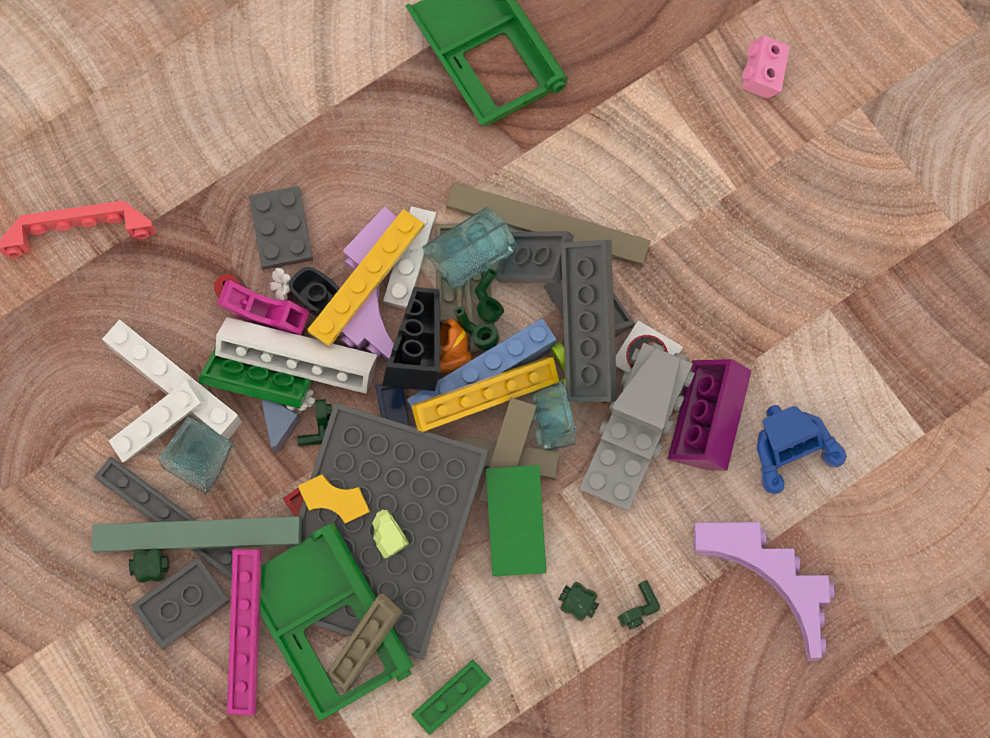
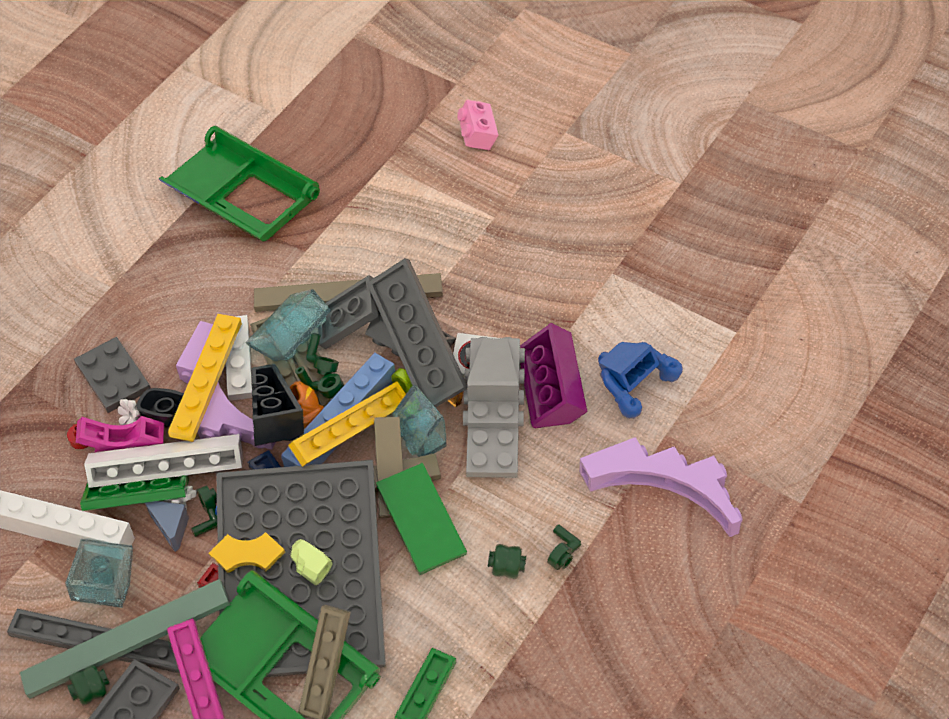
camera: 25 degrees left, 20 degrees down
(156, 421) = (51, 557): white plate -> none

